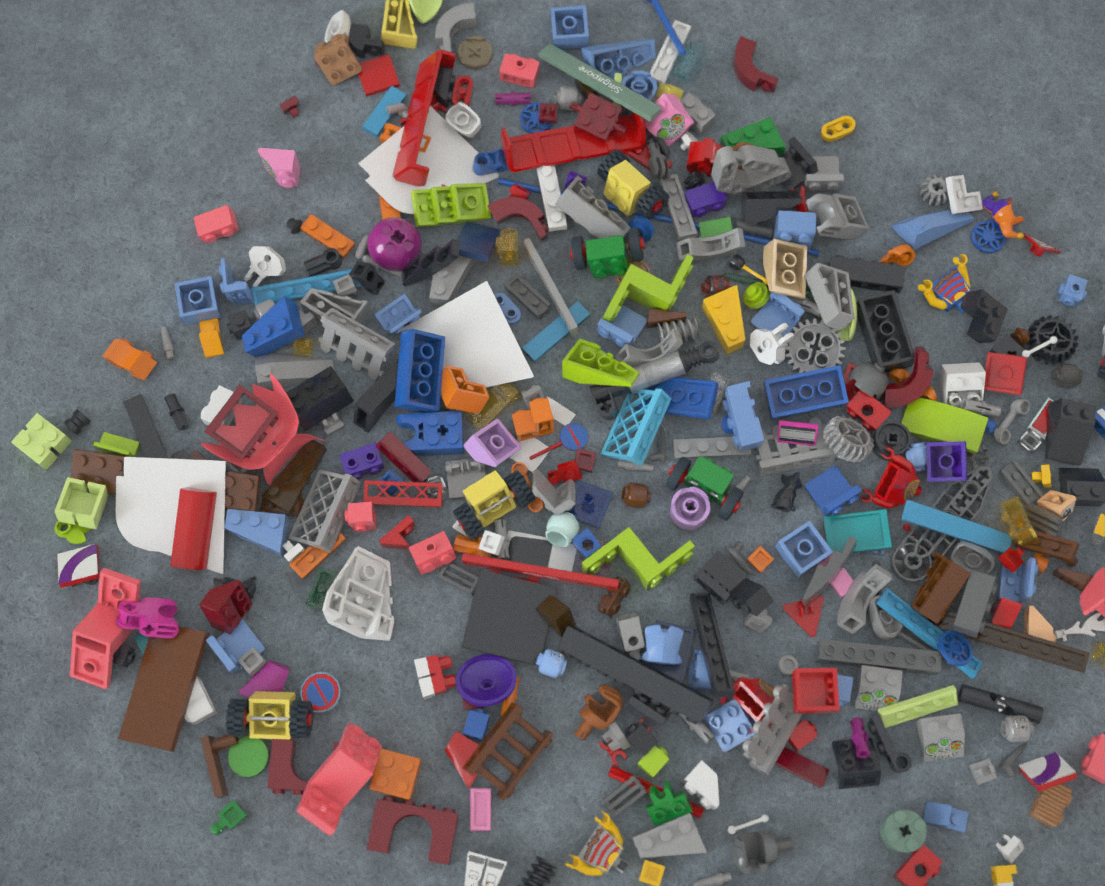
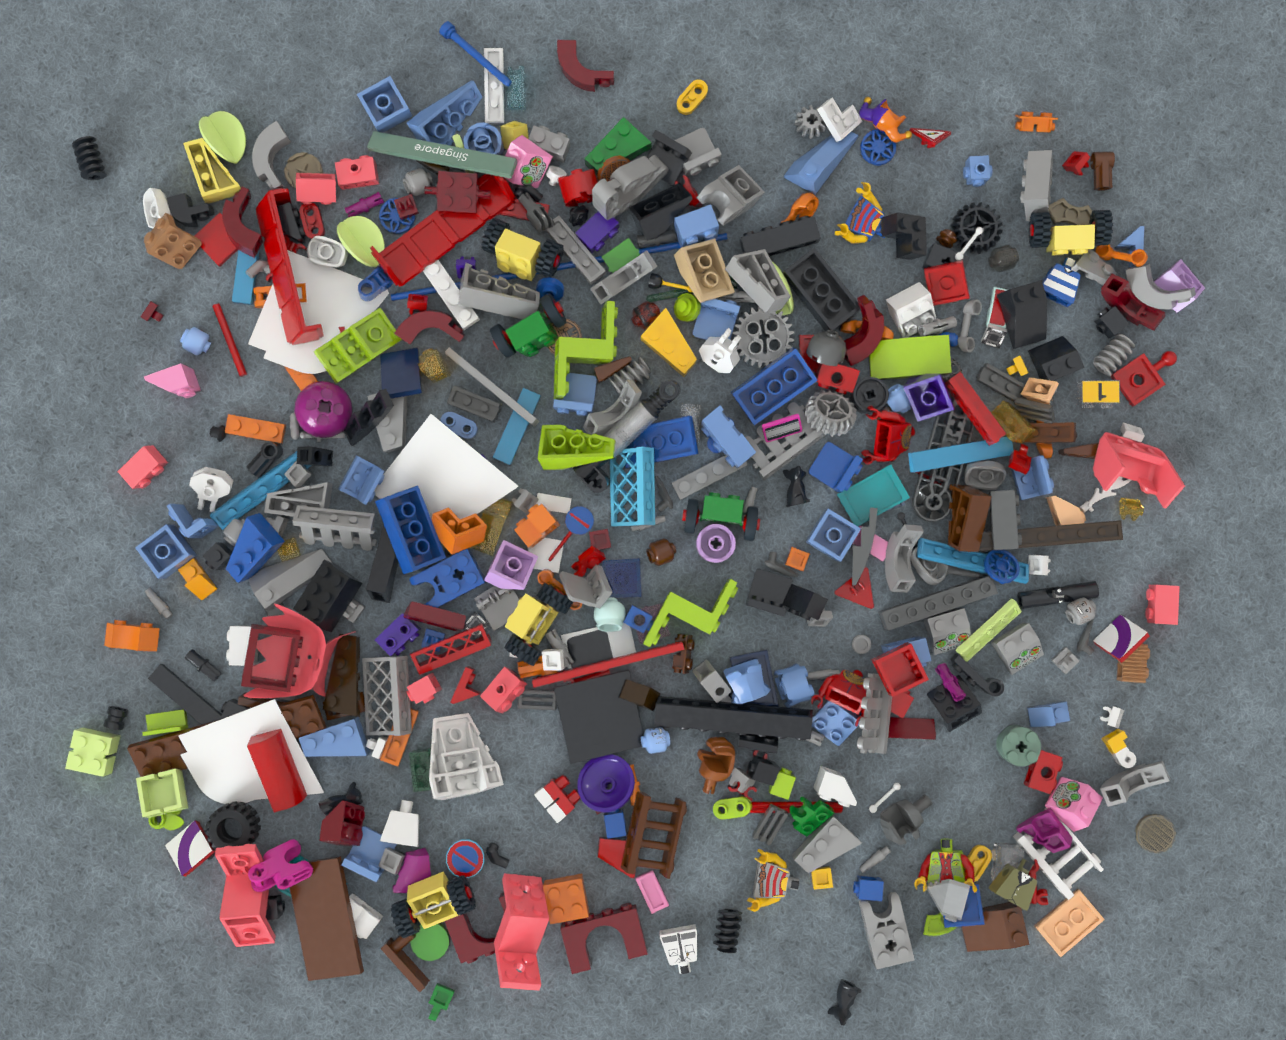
camera: 30 degrees left, 15 degrees up
(128, 547) = (243, 815): none -> black tyre
(277, 635) = (402, 826): none -> white torso
(315, 144) = (195, 341): none -> light blue head
(343, 156) = (229, 340): none -> red bar
(348, 705) = (494, 856): none -> black arm
(397, 78) = (242, 237): none -> dark red arch
(479, 66) = (315, 188): none -> coral brick
(493, 118) = (358, 236): none -> yellowish green piece
(594, 761) = (731, 807): none -> lime plate
(712, 645) = (790, 663): black tile -> none
(986, 492) = (974, 409): none -> red fence
(992, 666) = (1038, 564): none -> white tile
(1005, 612) = (1033, 514): red slope -> none

